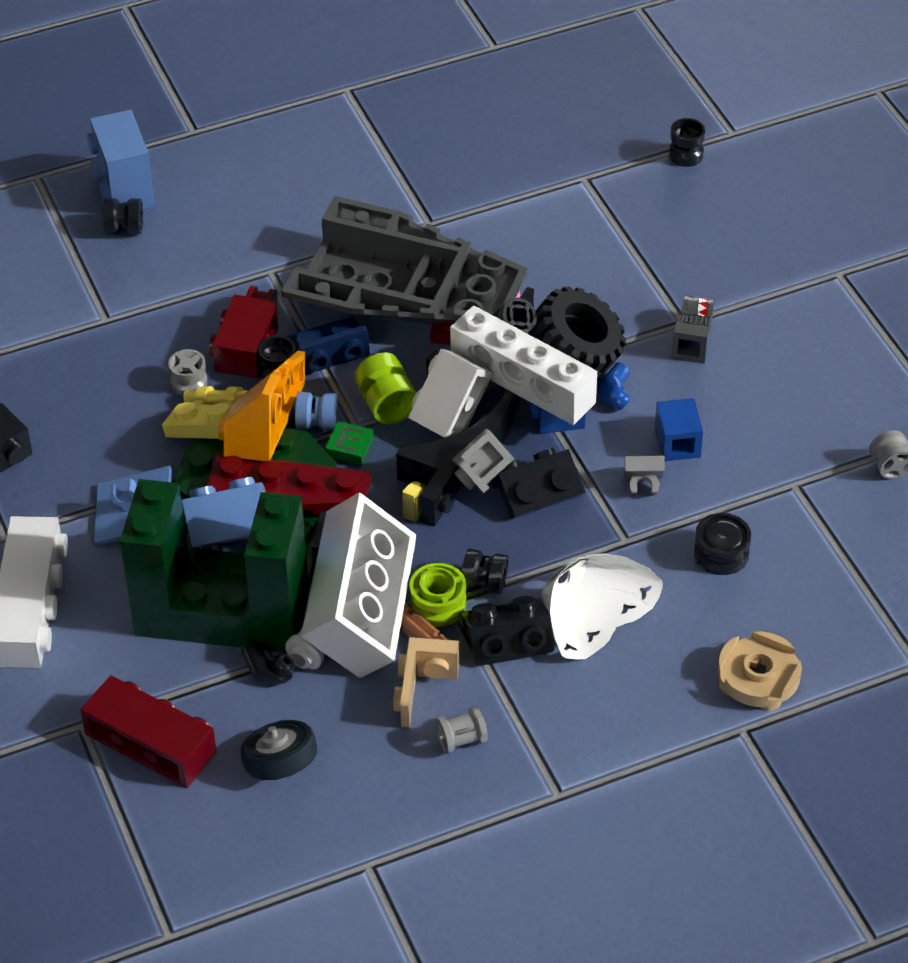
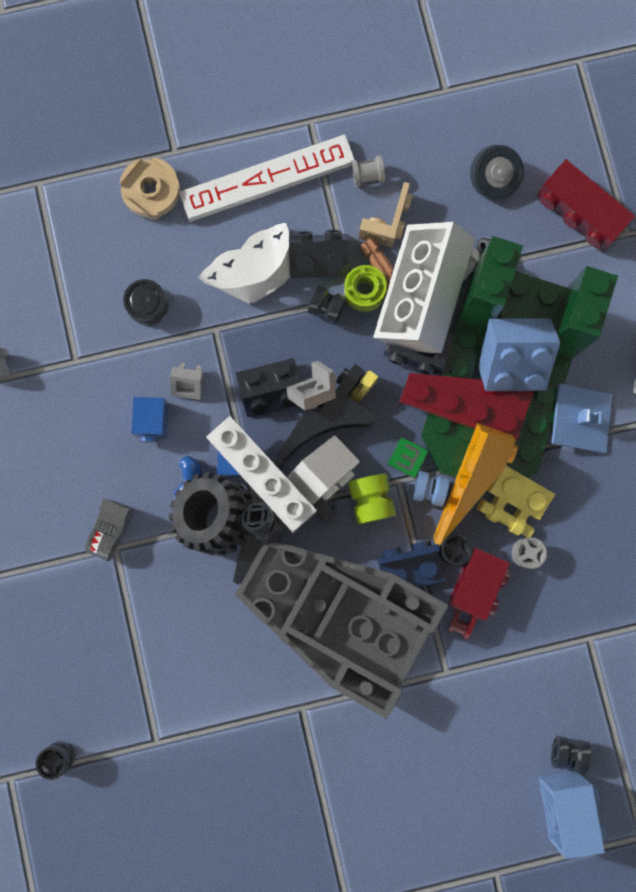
camera: 170 degrees left, 35 degrees up
(599, 710) = (266, 178): none -> white tile

